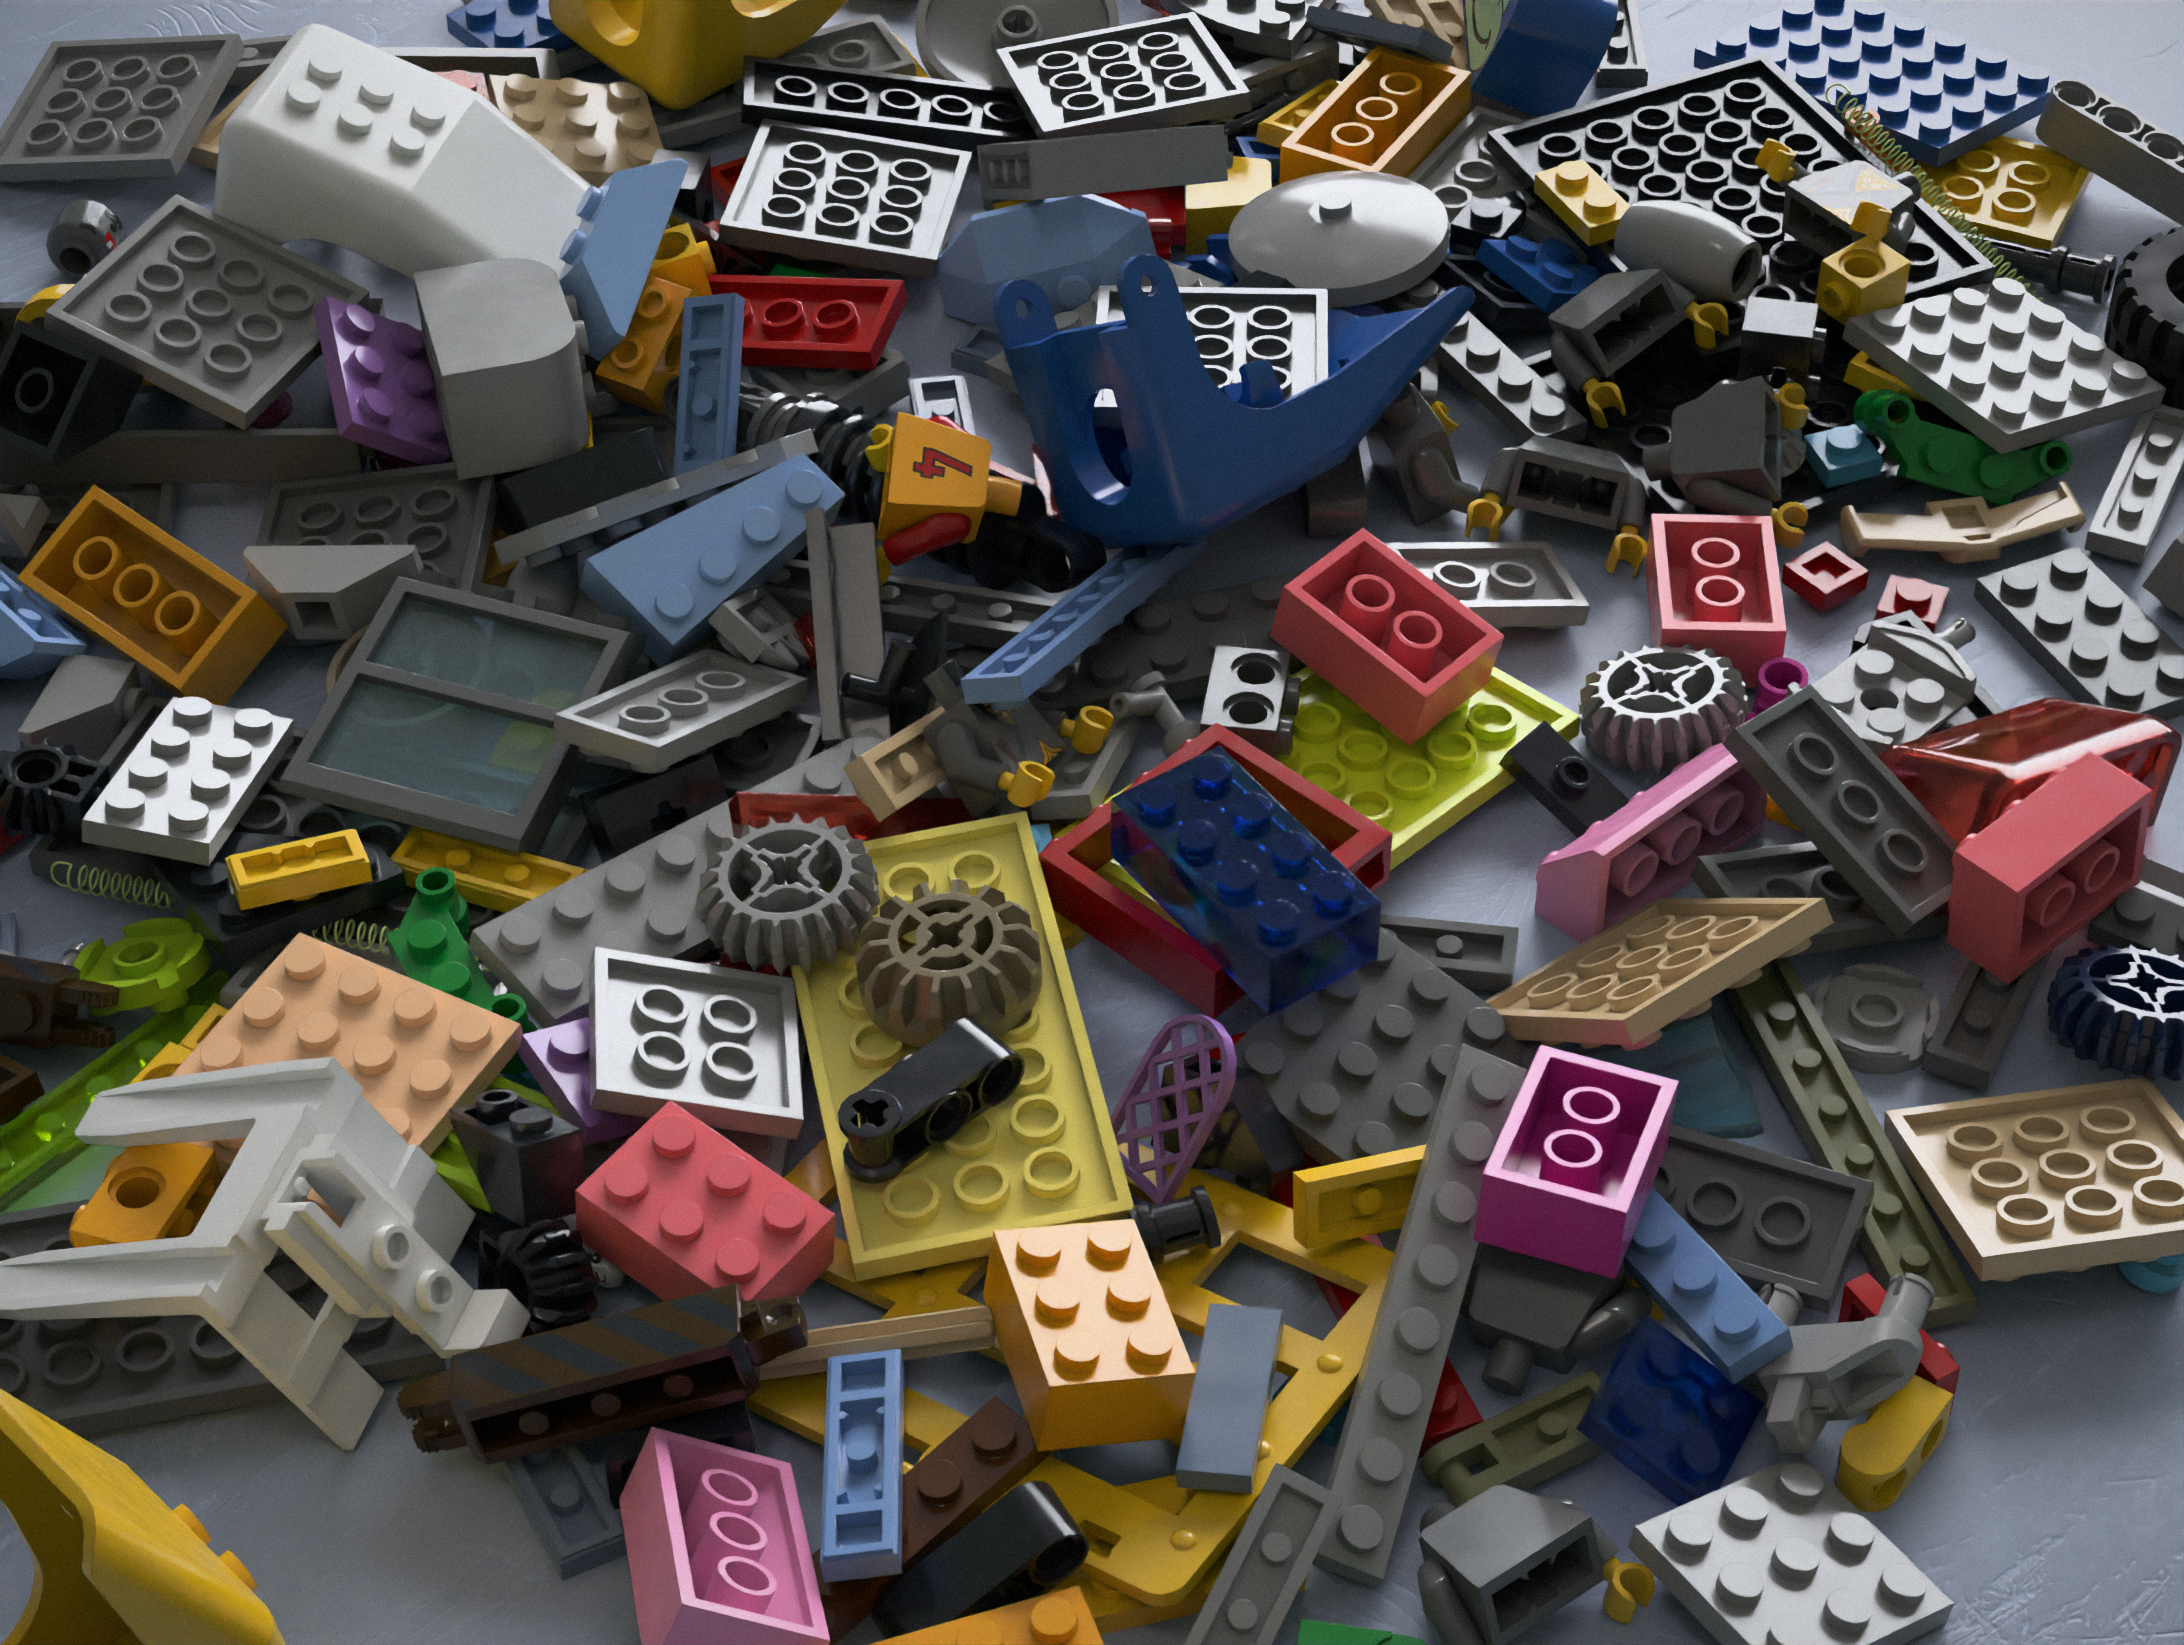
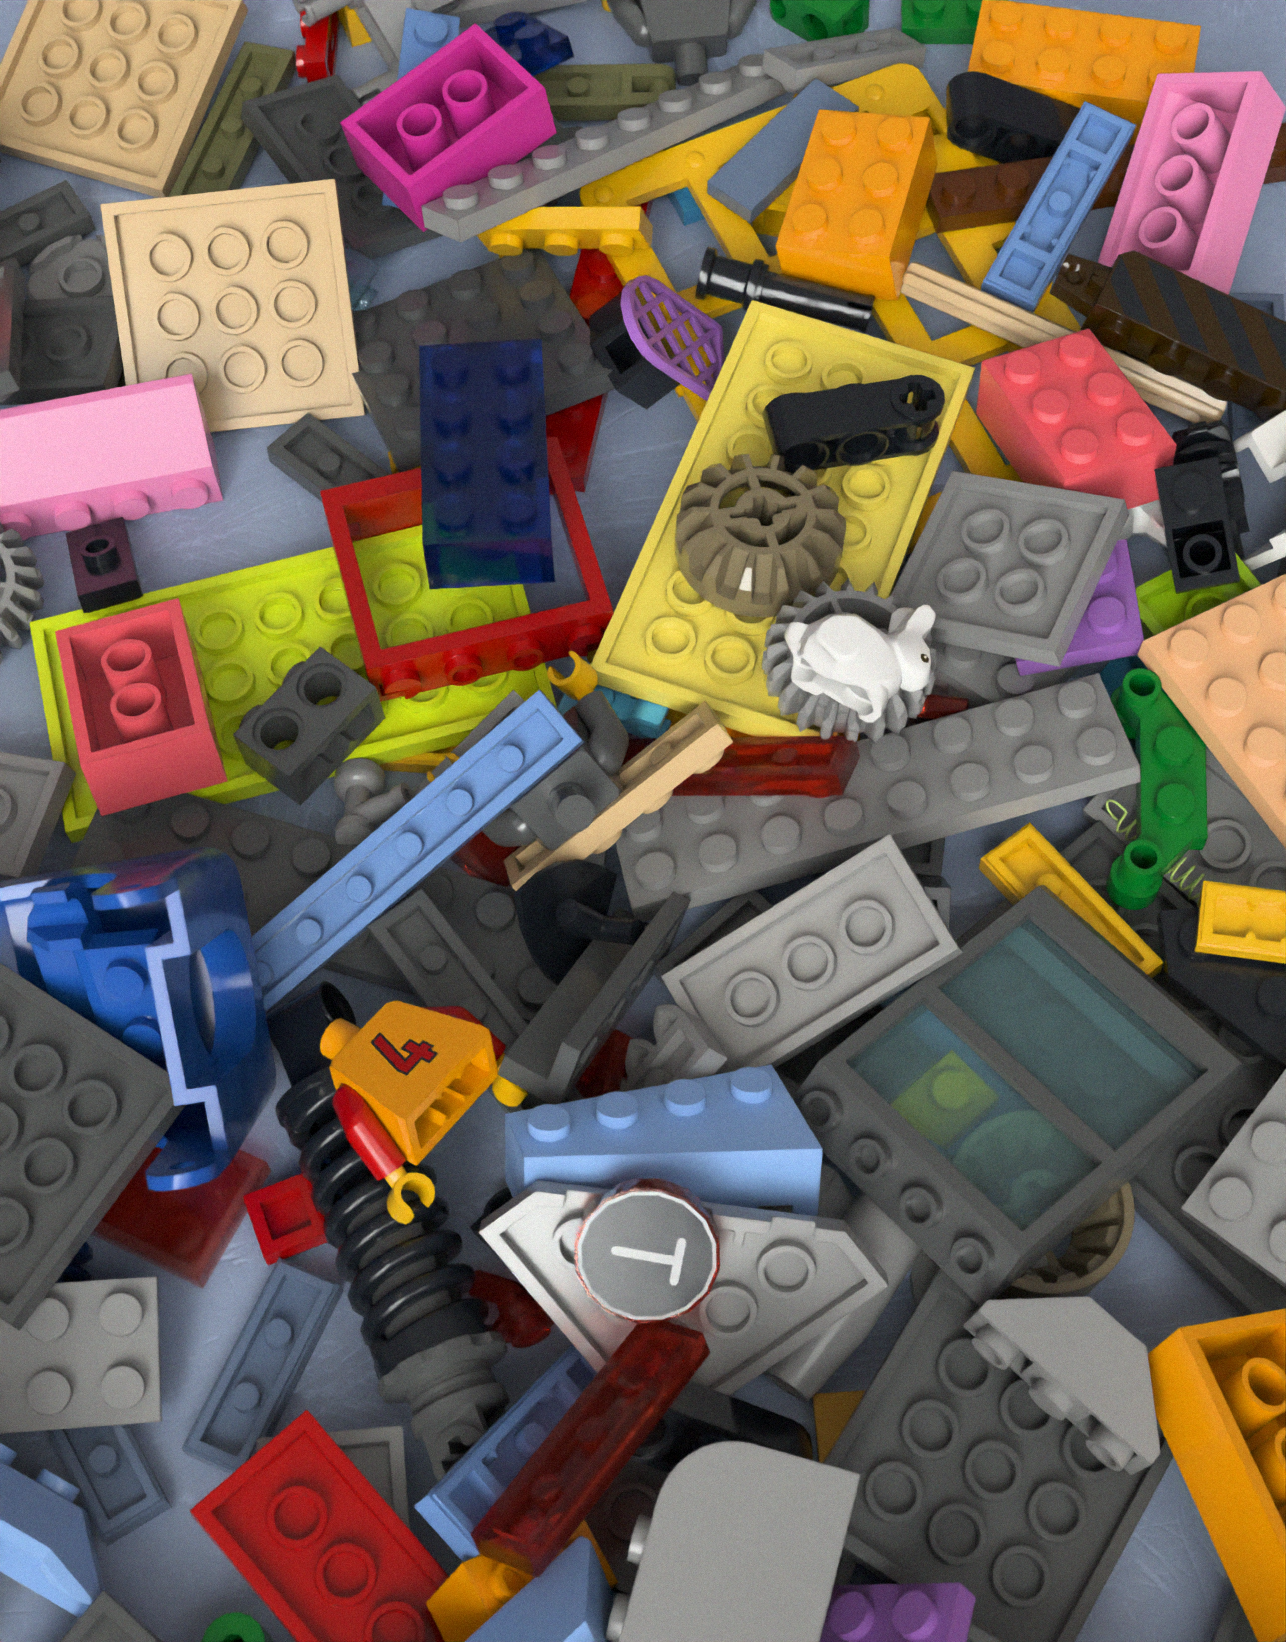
camera: 145 degrees left, 20 degrees up
(648, 376) = (589, 1446): none -> clear red plate
(678, 461) = (647, 1250): none -> tile
(761, 826) = (860, 662): none -> white animal

